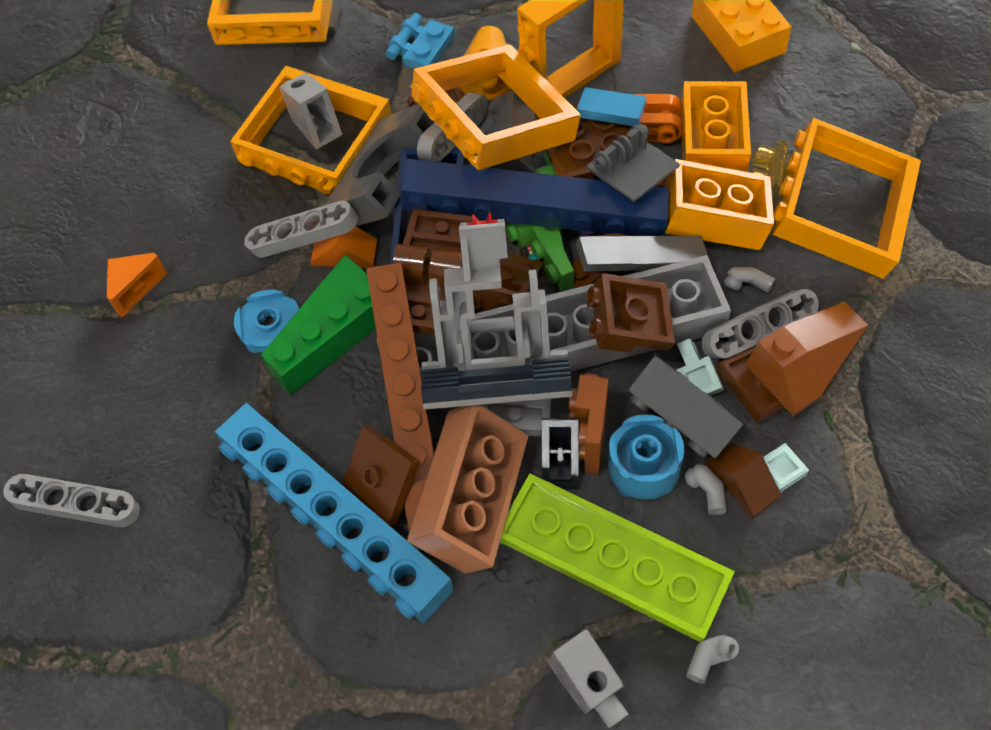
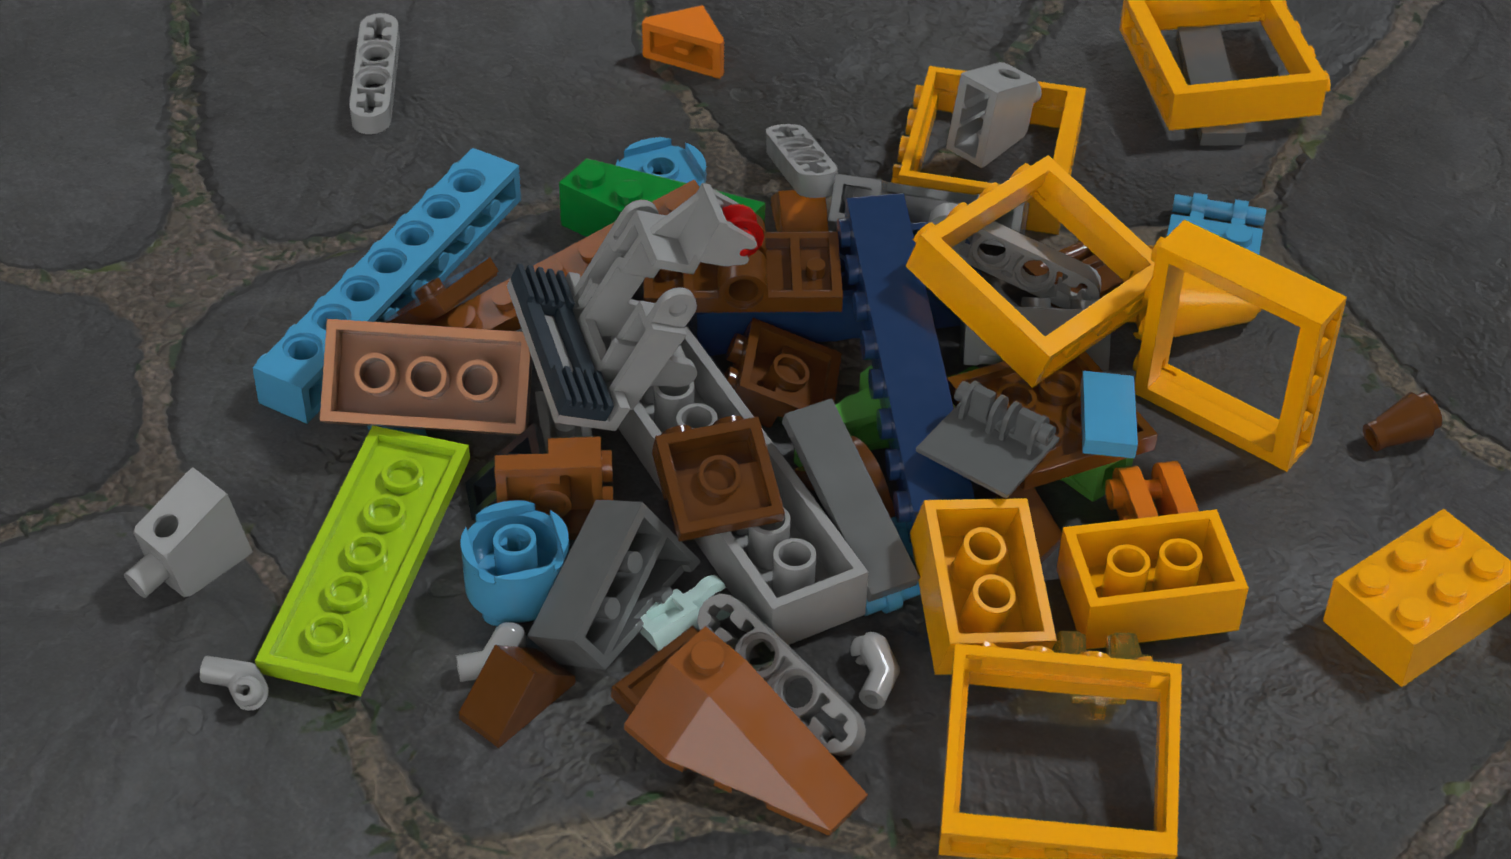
camera: 70 degrees right, 15 degrees down
(785, 467) = (544, 739): light aqua tile -> none

